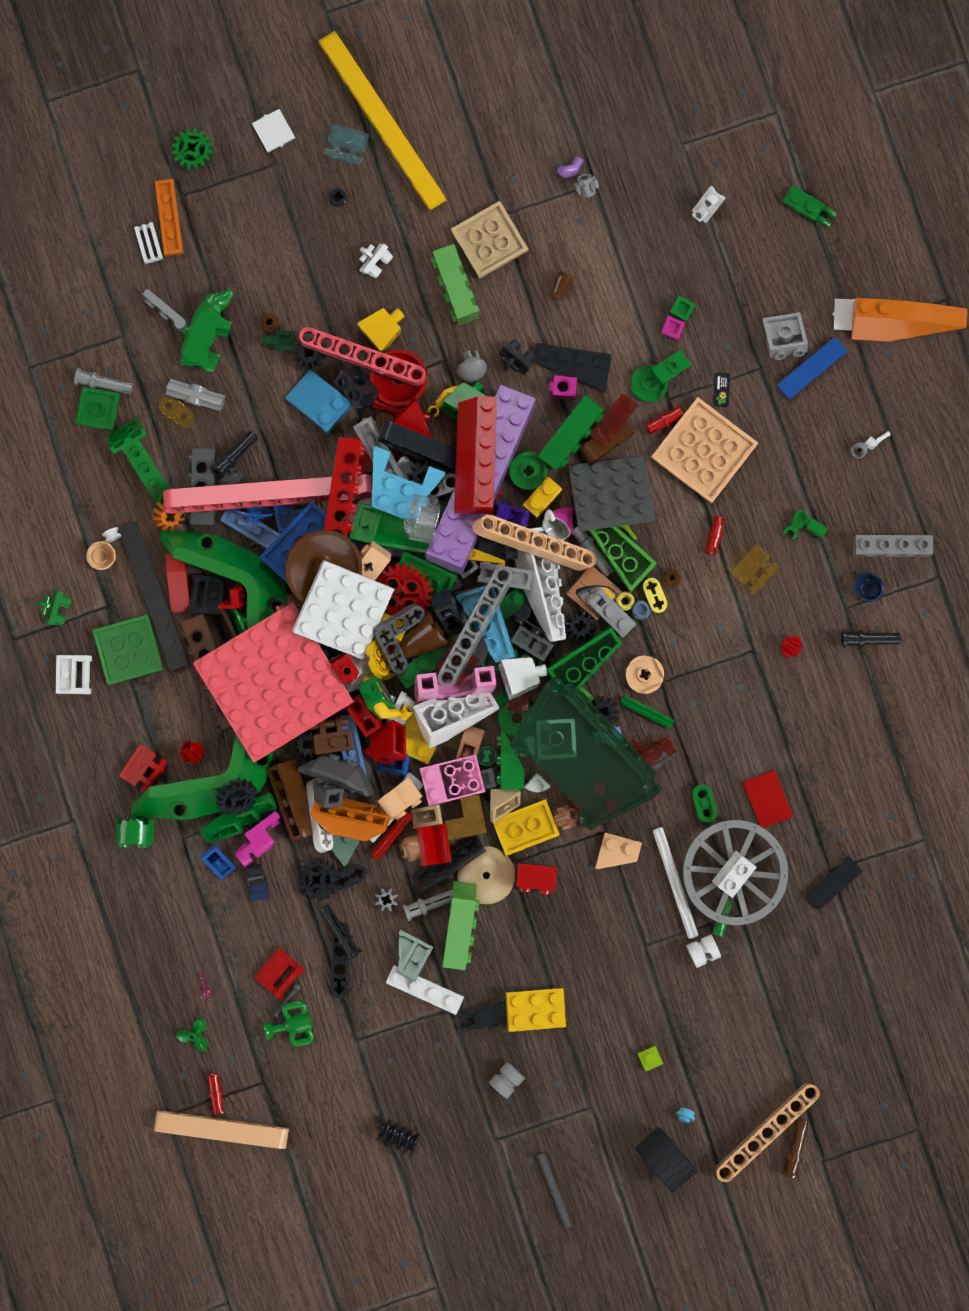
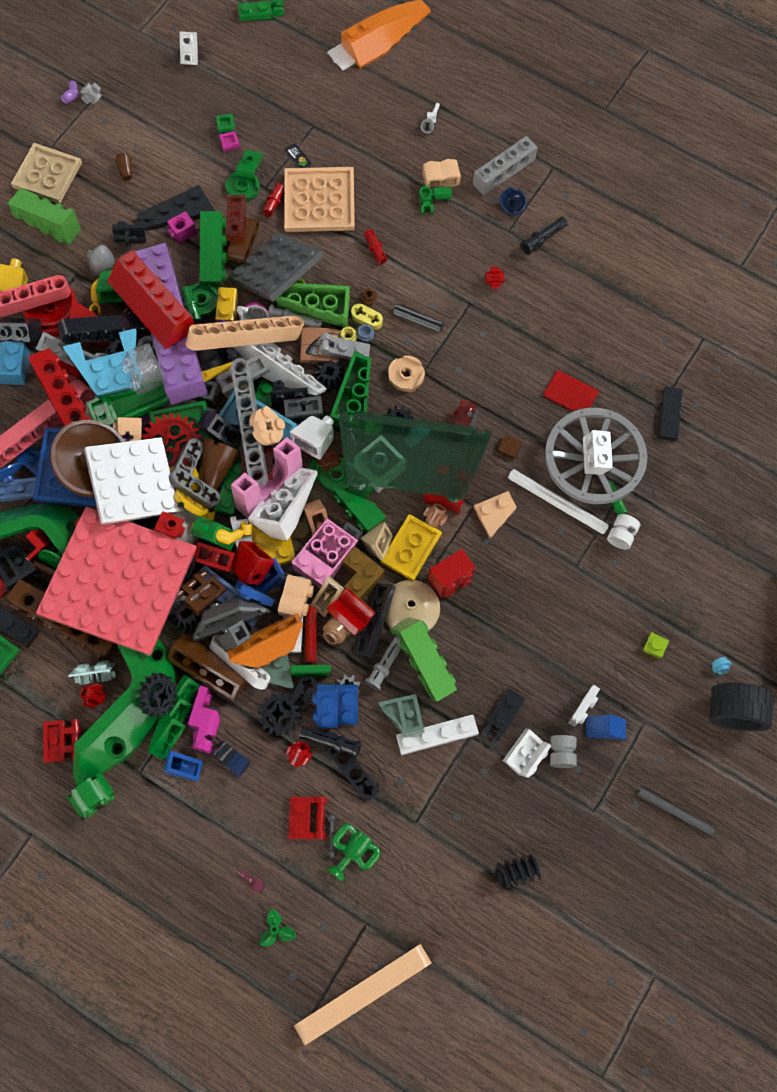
camera: 45 degrees left, 15 degrees down
(203, 732) = (82, 672): none -> light aqua hinge
(215, 1093) = (334, 966): red pin -> none
(309, 921) = (299, 754): none -> red gear
(364, 907) = (335, 705): none -> blue plate
(368, 865) = (311, 670): none -> green tile
(370, 771) = (248, 593): none -> blue plate
(479, 1059) = (526, 753): none -> white bracket
(486, 756) = (337, 517): tile -> none
(491, 649) = (267, 418): none -> light nougat plate
(513, 472) = (190, 303): none -> green axle
(535, 1009) = (537, 678): yellow plate -> none
(537, 784) = (393, 510): white tile -> none
(545, 1062) = (588, 701): none -> white plate
(556, 1088) = (605, 727): none -> blue slope
(647, 712) = (430, 398): green axle -> none
(676, 805) = (509, 447): none -> reddish brown tile
(697, 630) = (418, 317): none -> black axle
(704, 803) = (530, 427): green plate -> none
(750, 564) = (417, 248): clear yellow plate -> none
(785, 336) = (313, 91): light grey plate -> none
(812, 368) = (349, 101): blue tile -> none
(830, 509) = (441, 173): none -> light nougat brick

